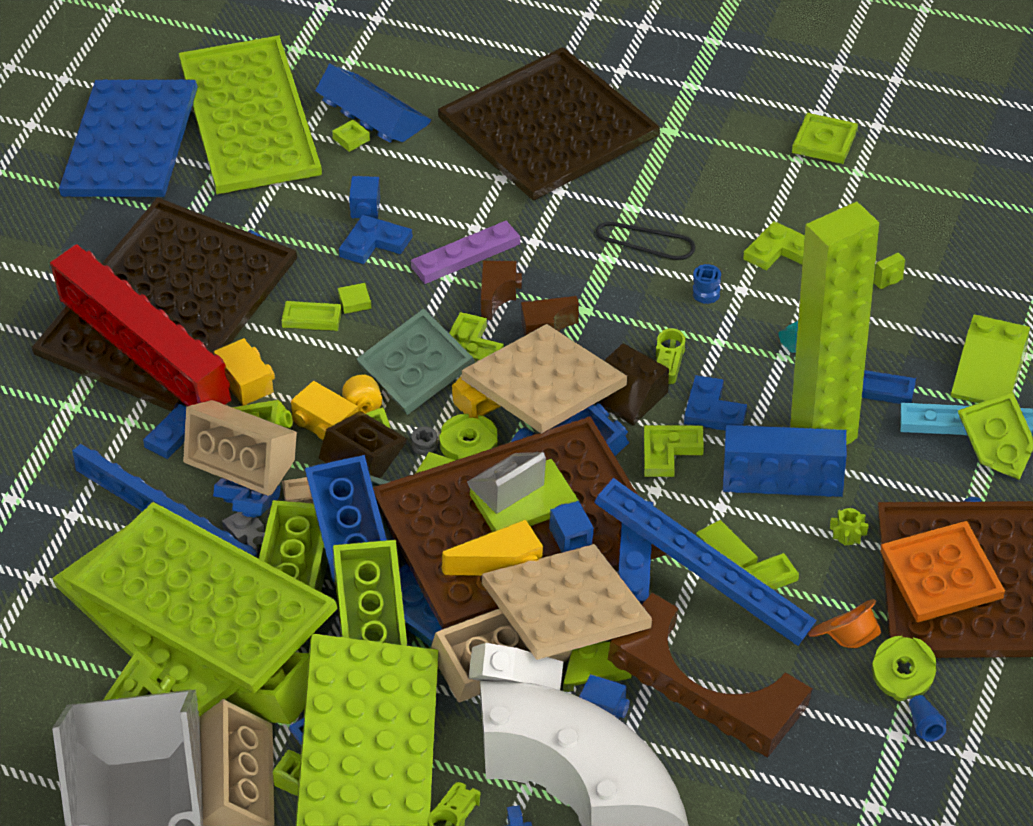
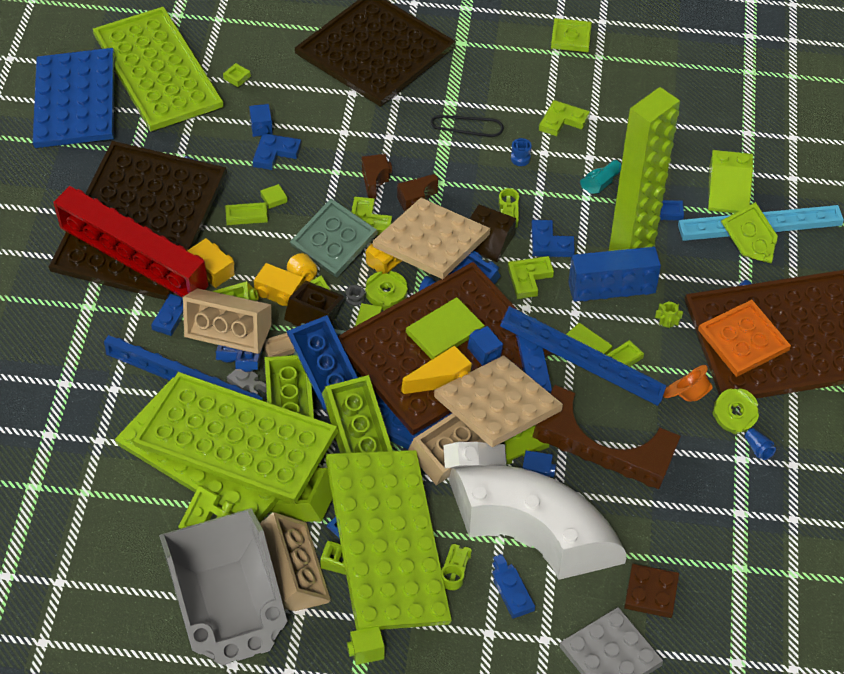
camera: 15 degrees left, 5 degrees up
(370, 104) = (245, 50): blue slope -> none
(465, 252) = (343, 151): medium lavender plate -> none
(510, 480) = (433, 317): light grey slope -> none

